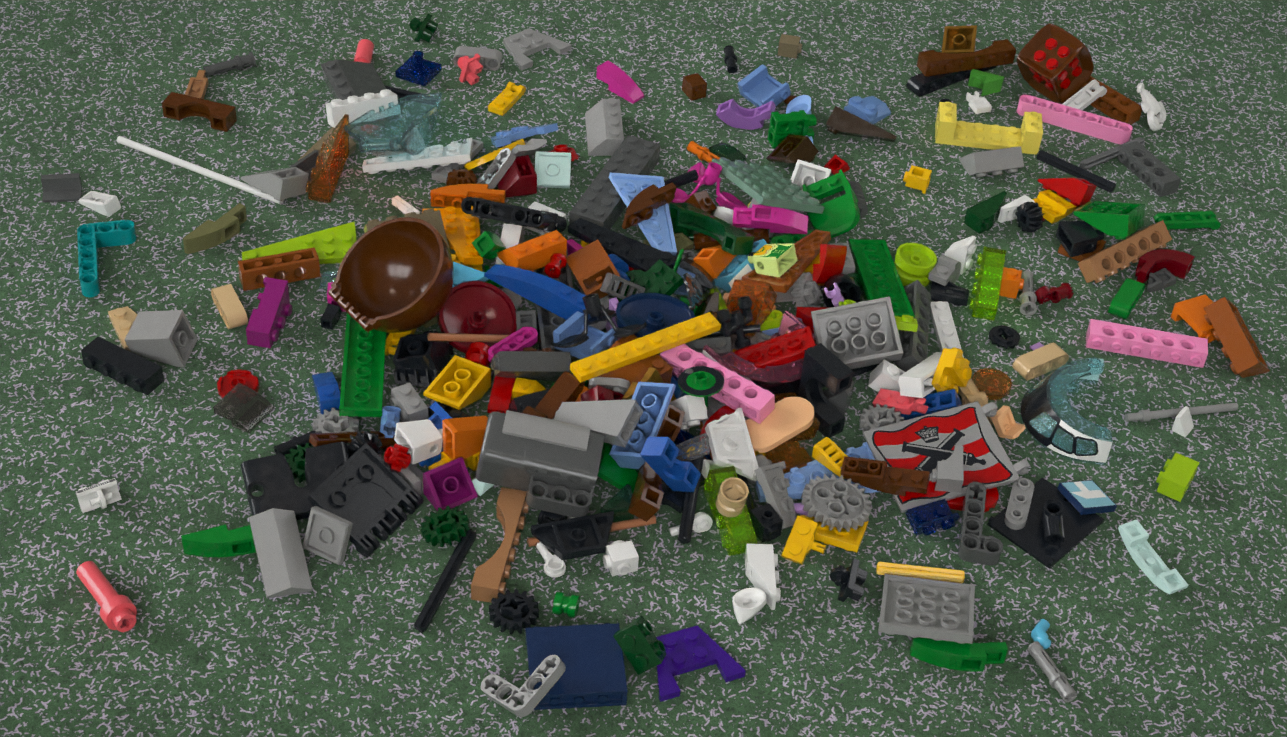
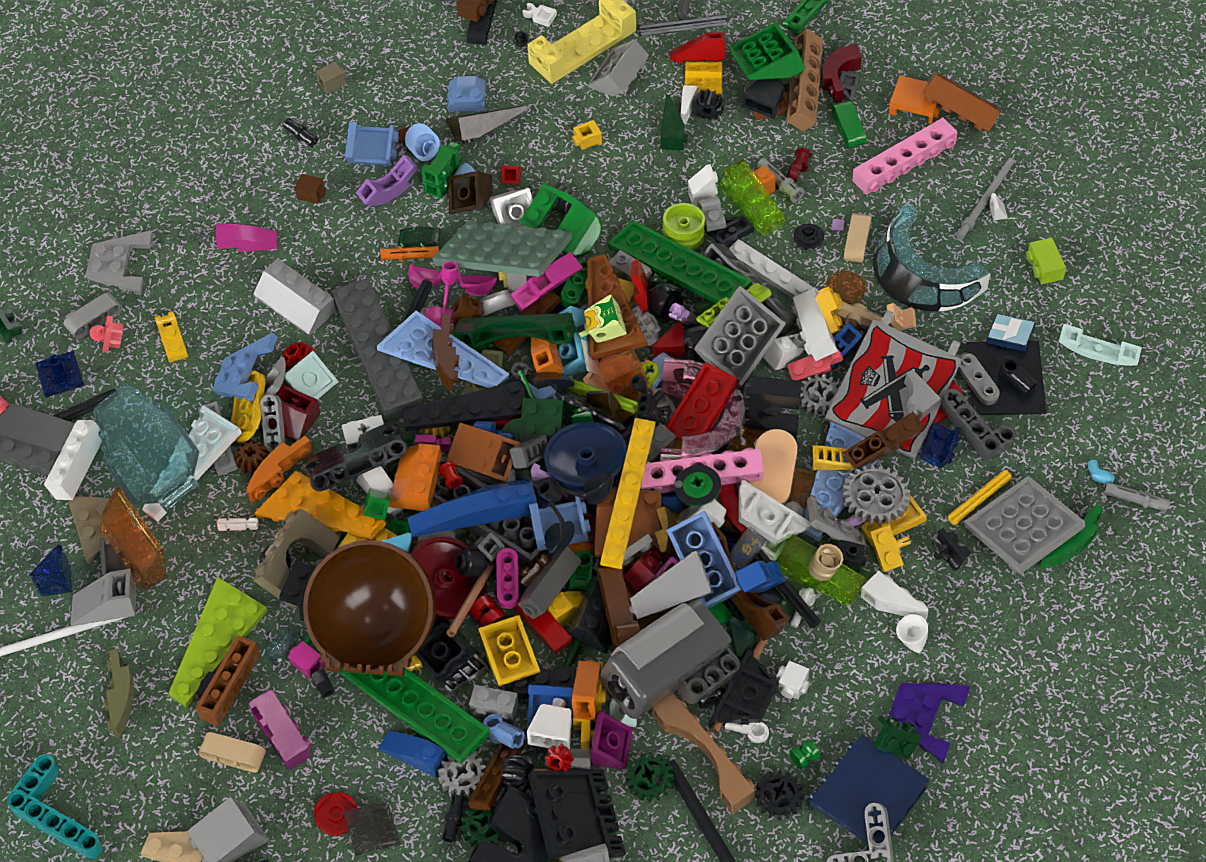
camera: 40 degrees left, 15 degrees up
(269, 147) = (53, 574): none -> clear blue slope
(502, 320) = (470, 563): none -> black head

